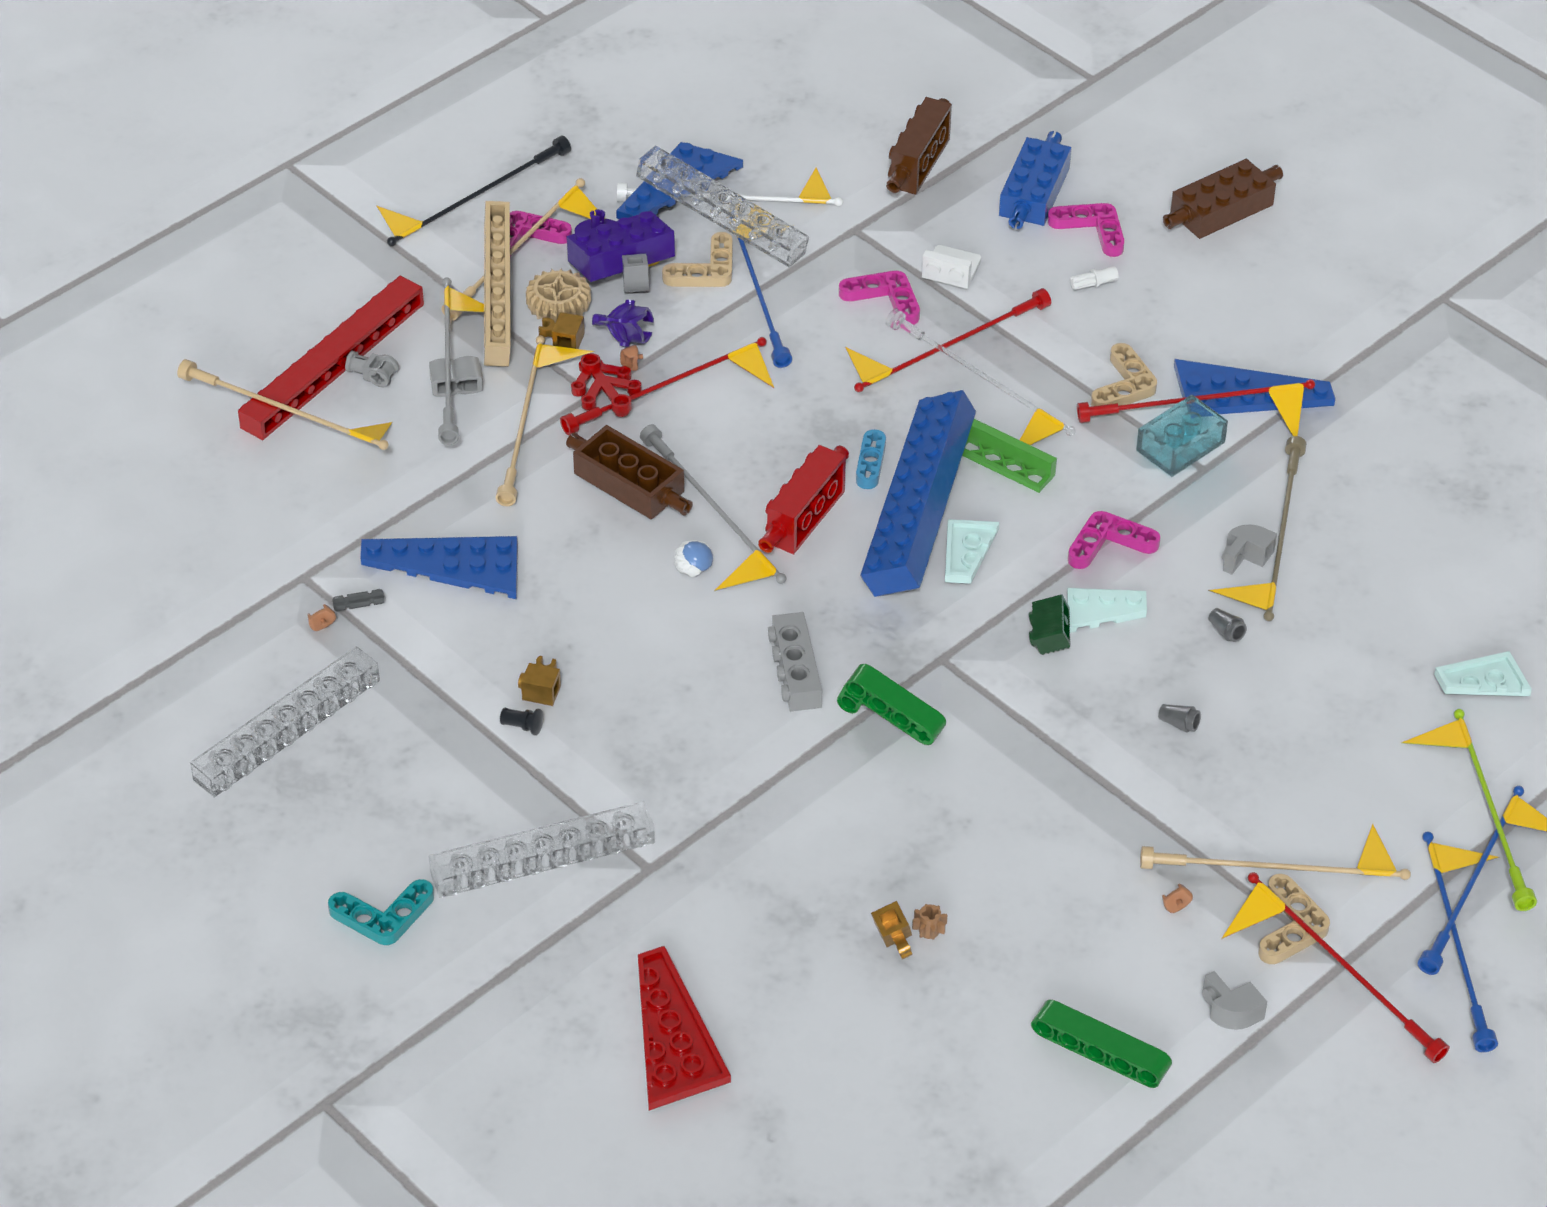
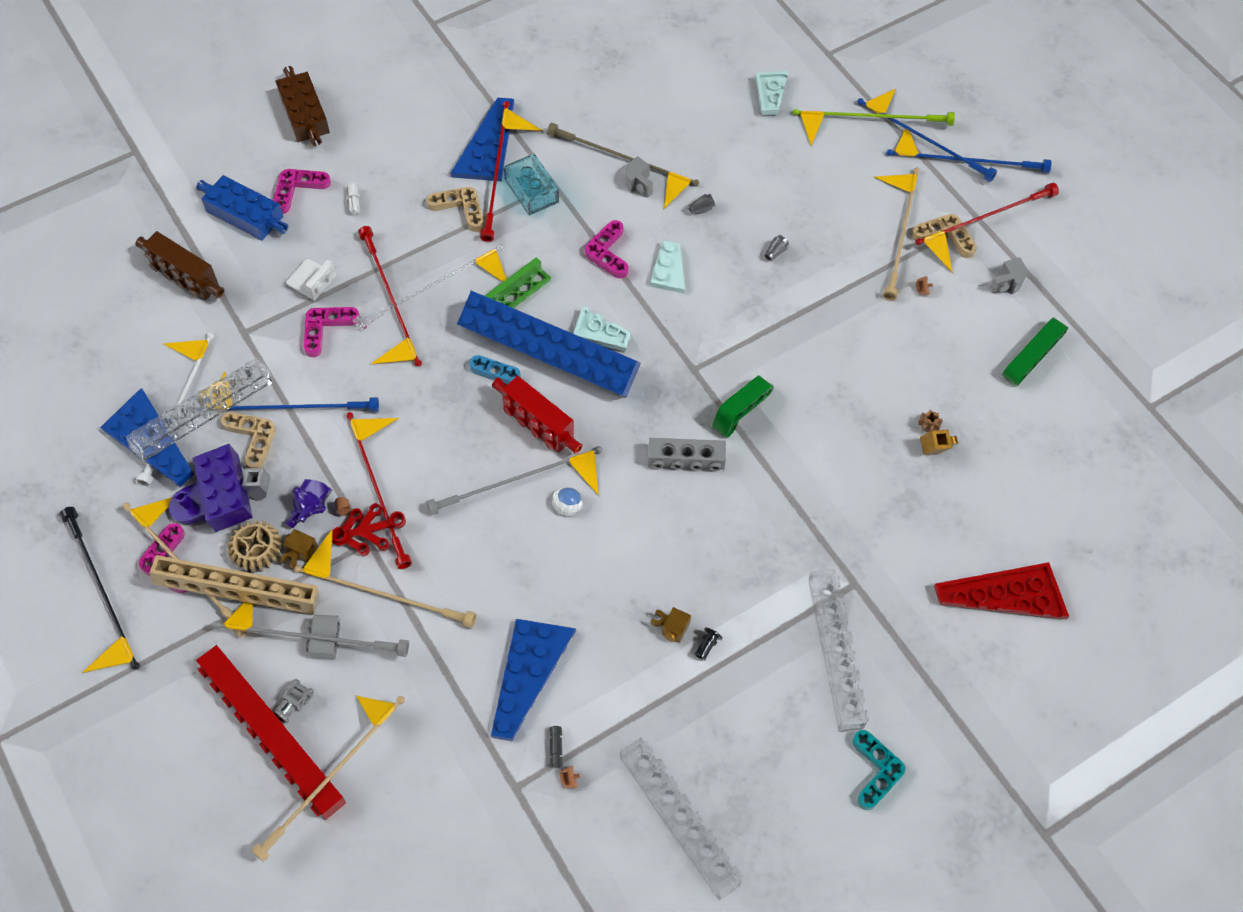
camera: 80 degrees left, 15 degrees up
(629, 472) = (474, 527): reddish brown brick -> none
(1050, 624) = (685, 297): dark green brick -> none

